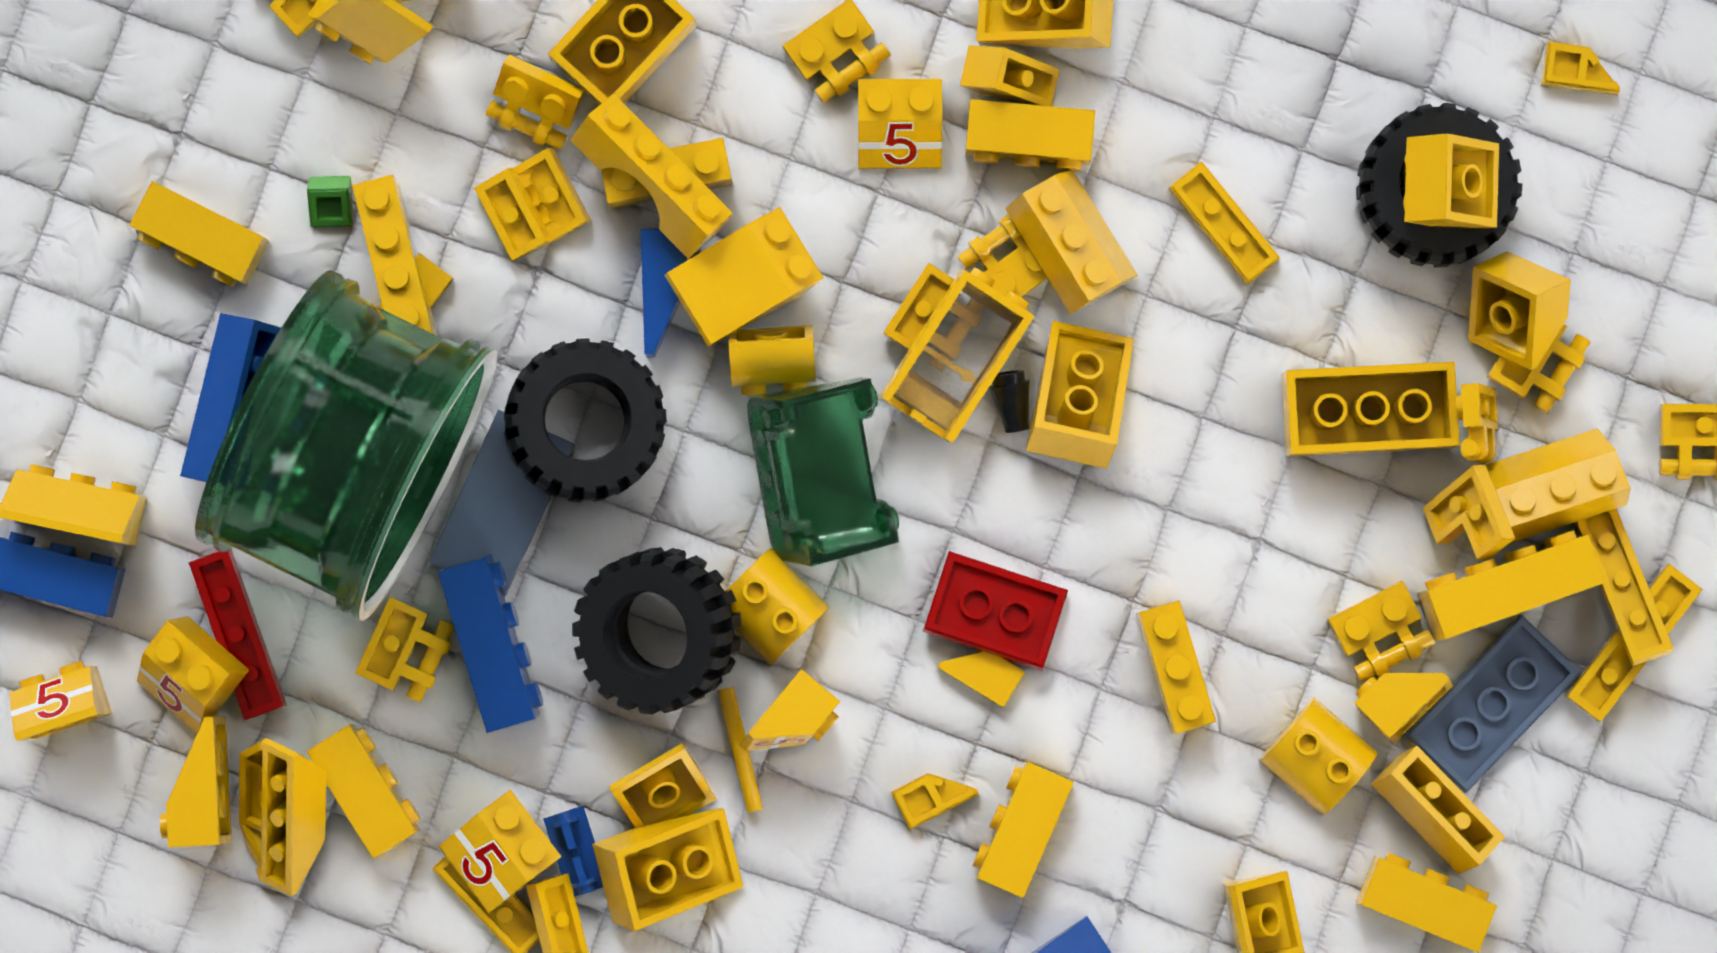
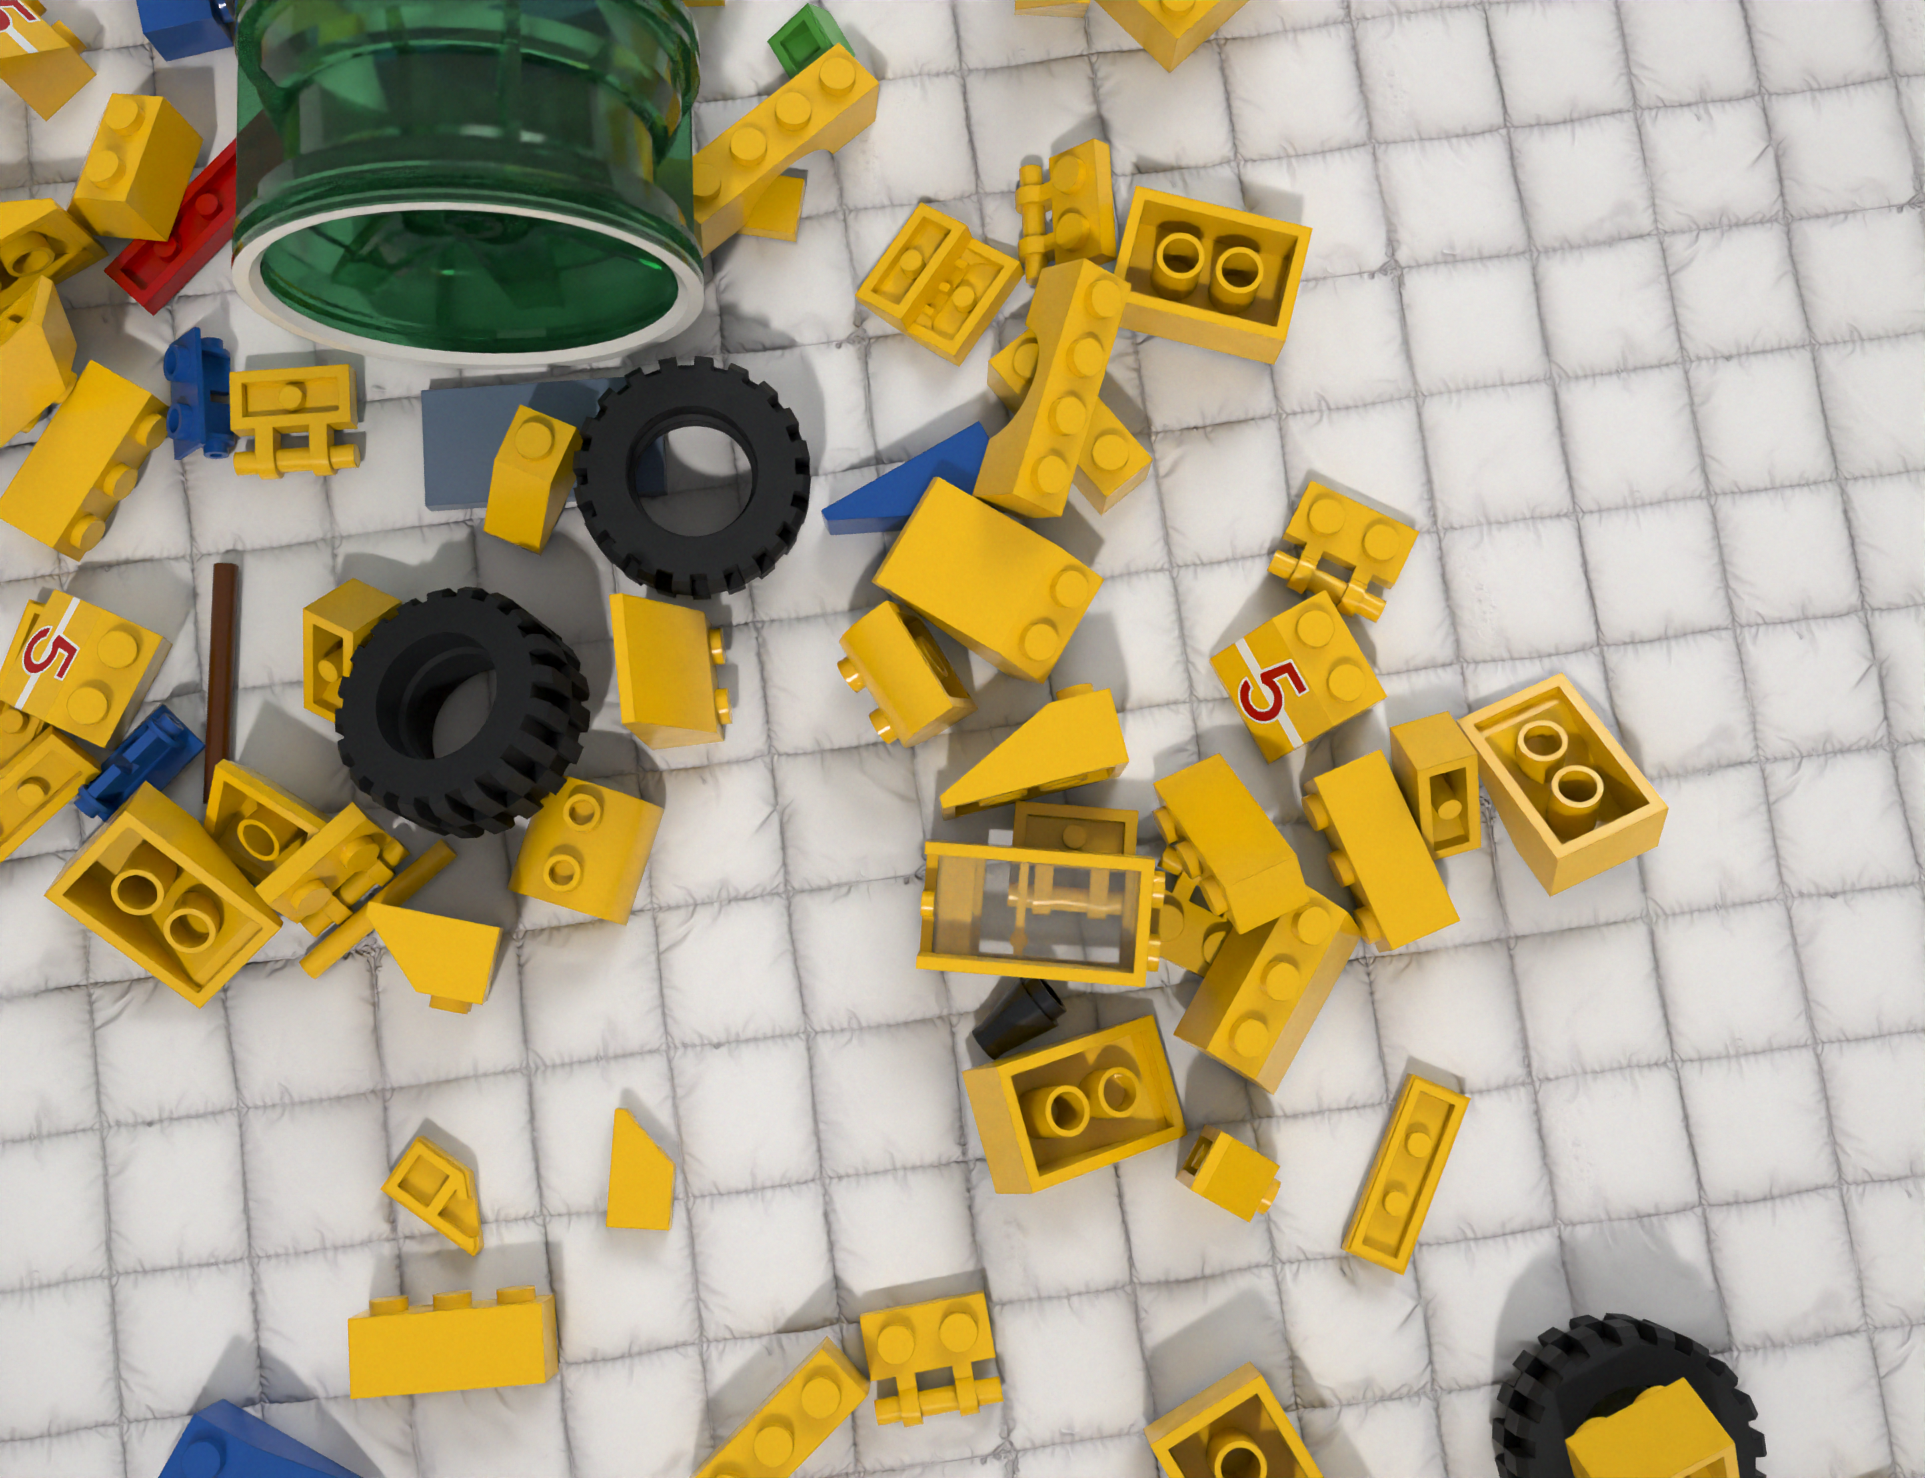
camera: 60 degrees right, 5 degrees down
(342, 696) = (195, 371): none -> blue hinge
(490, 643) = (349, 513): blue brick -> none
(530, 520) = (531, 479): none -> yellow slope
(547, 777) = (220, 670): none -> reddish brown bar
(567, 687) = (331, 635): none -> yellow slope
(698, 494) = (668, 673): none -> yellow slope
(708, 758) = (333, 871): none -> yellow plate
(819, 472) = (787, 818): clear green windscreen -> none
(867, 289) = (1056, 750): none -> yellow slope
(977, 222) = (1229, 844): none -> yellow brick
(995, 610) = (729, 1147): red tile -> none
(1167, 554) = (926, 1338): none -> yellow plate
(1168, 325) = (1230, 1174): none -> yellow slope

